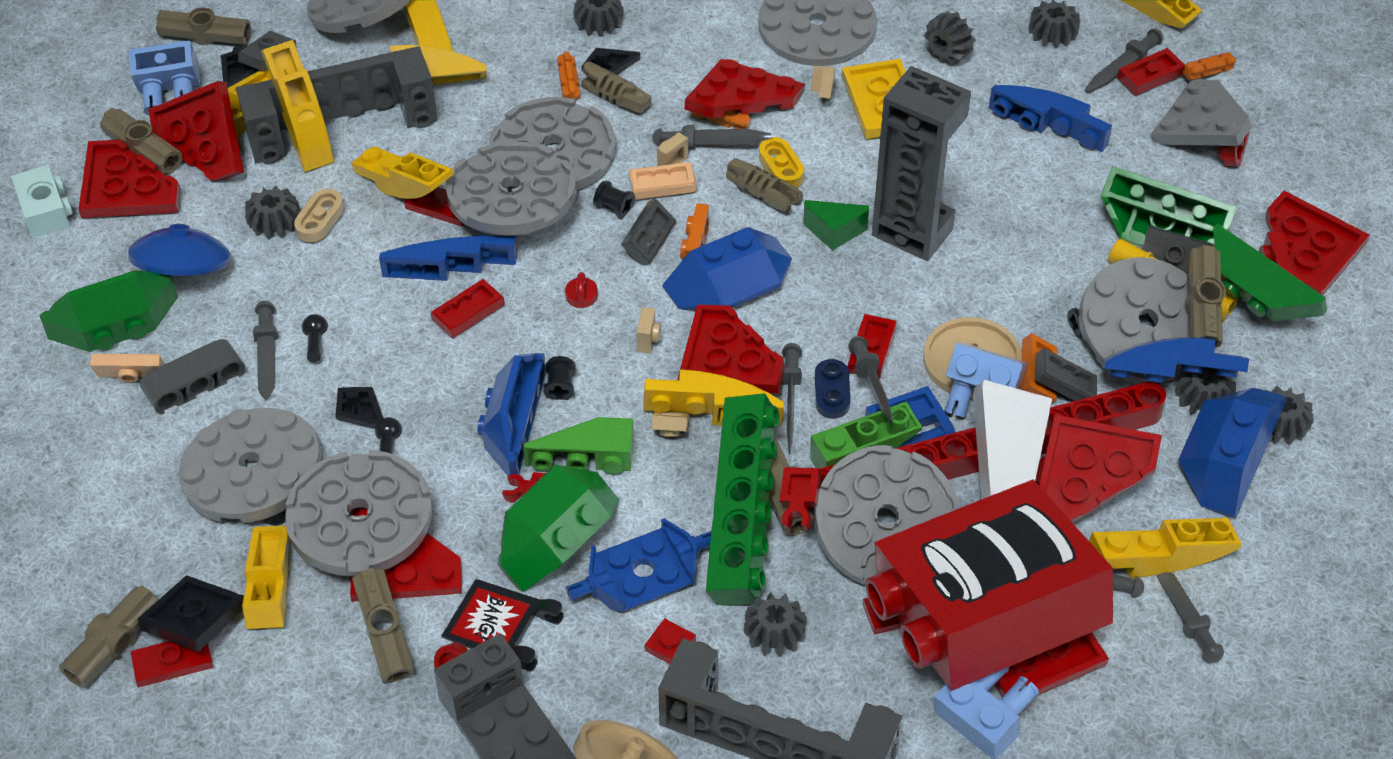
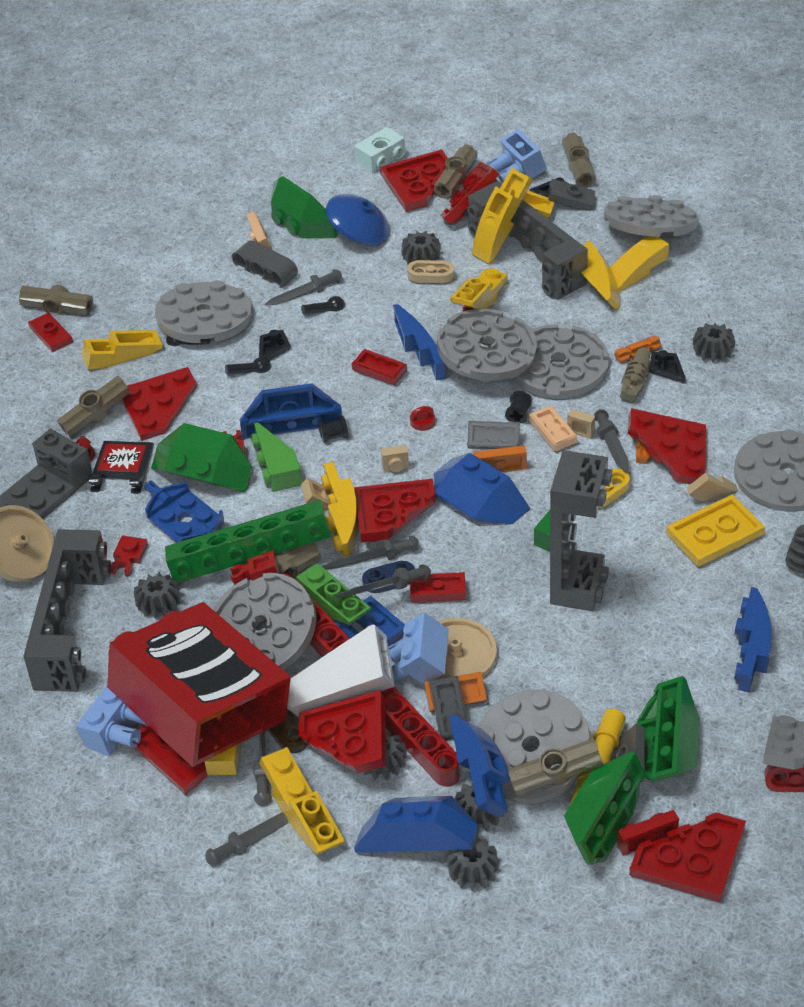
camera: 75 degrees right, 5 degrees down
(191, 613) = (78, 323): black plate -> none
(346, 545) = (196, 370): light grey plate -> none

